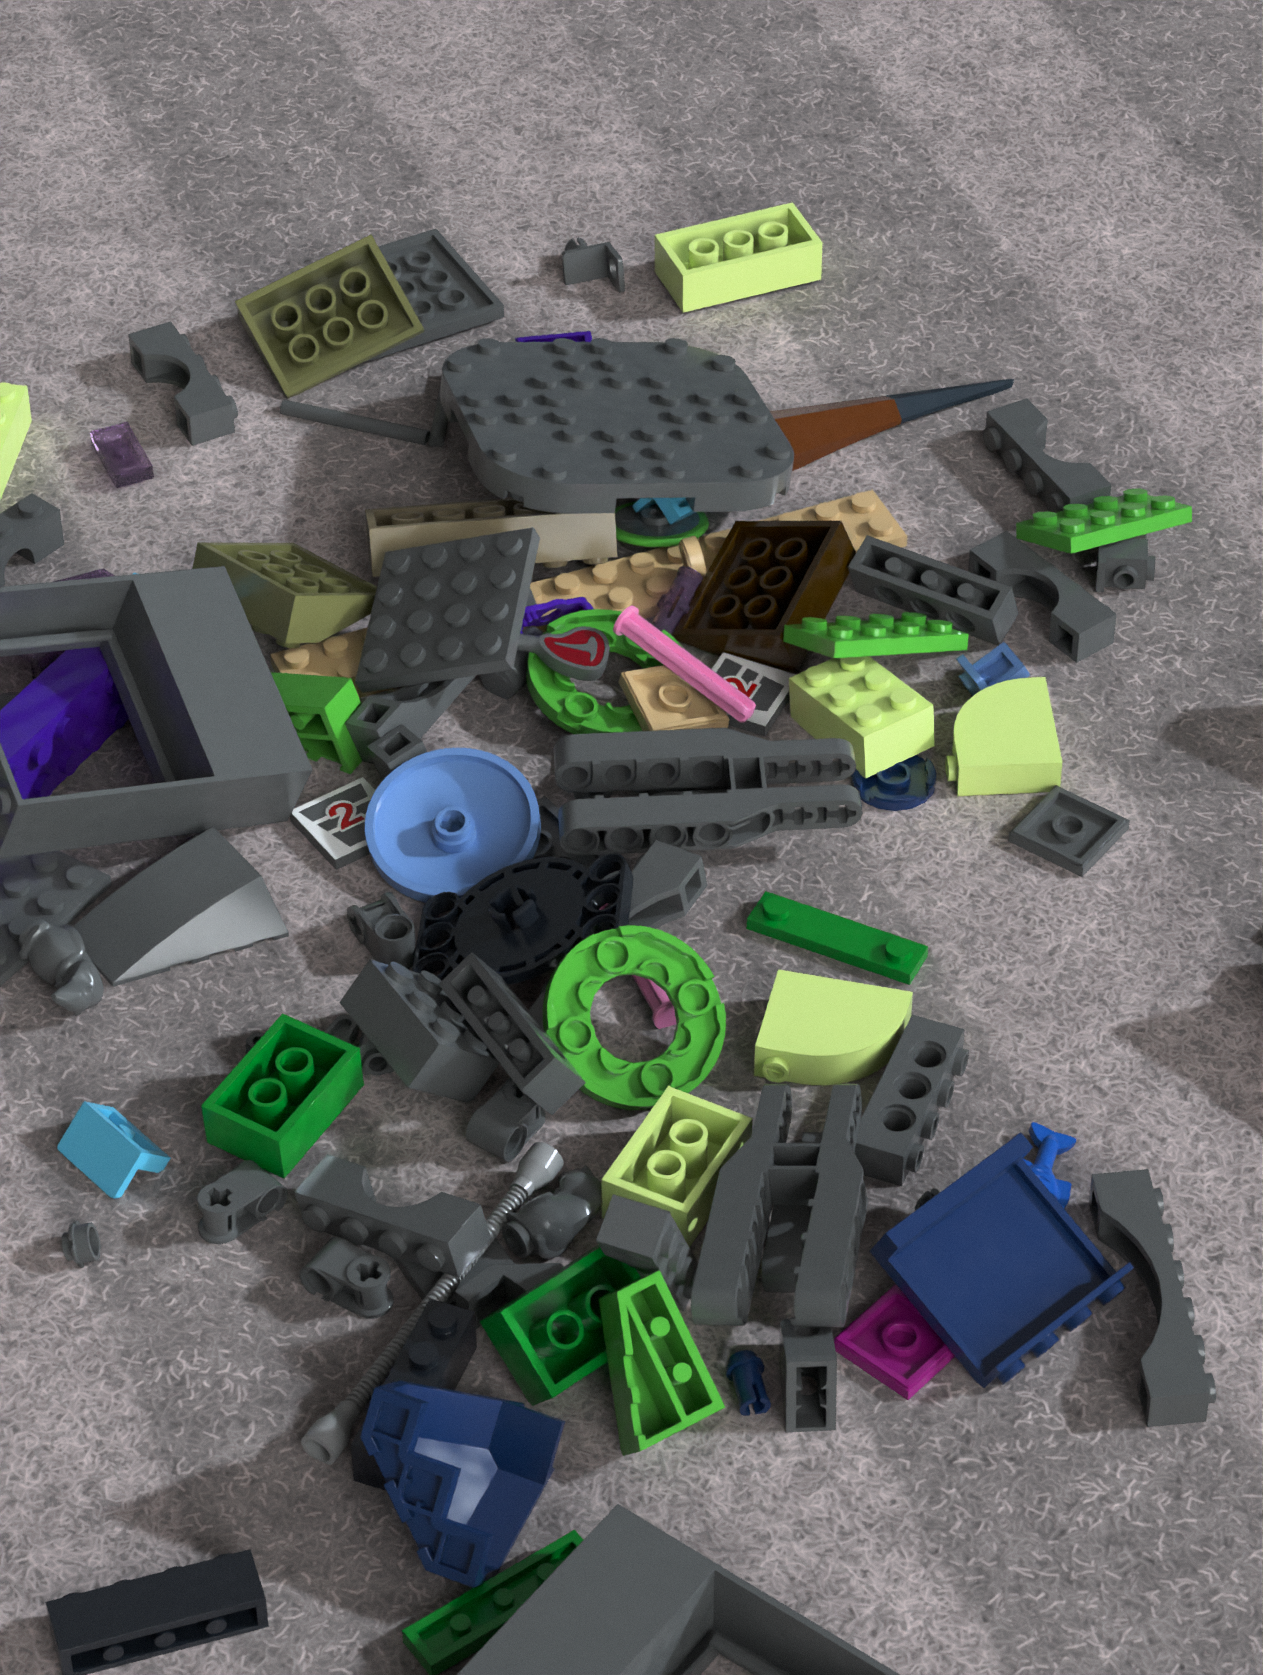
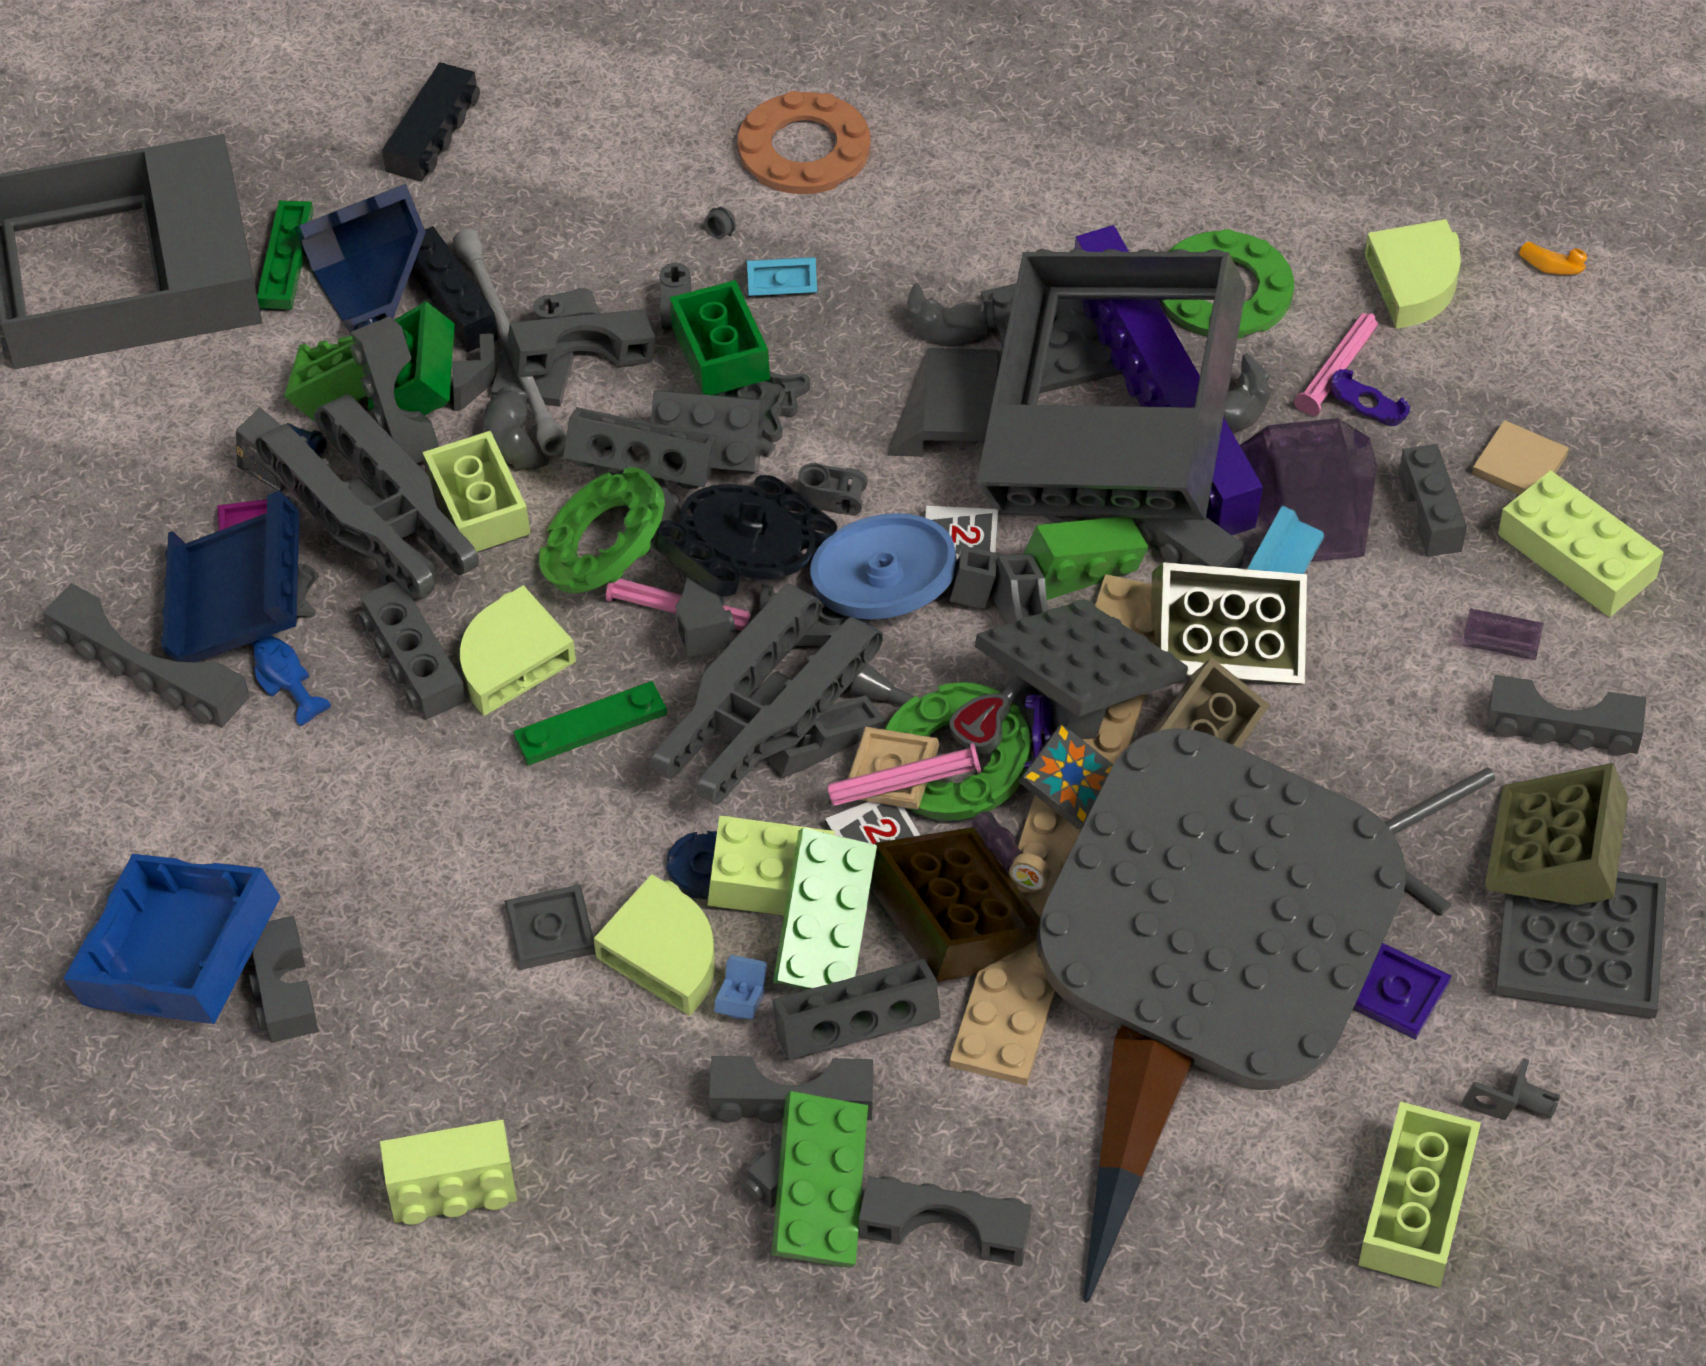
camera: 130 degrees right, 10 degrees up
(573, 579) = (1067, 775): none -> tile

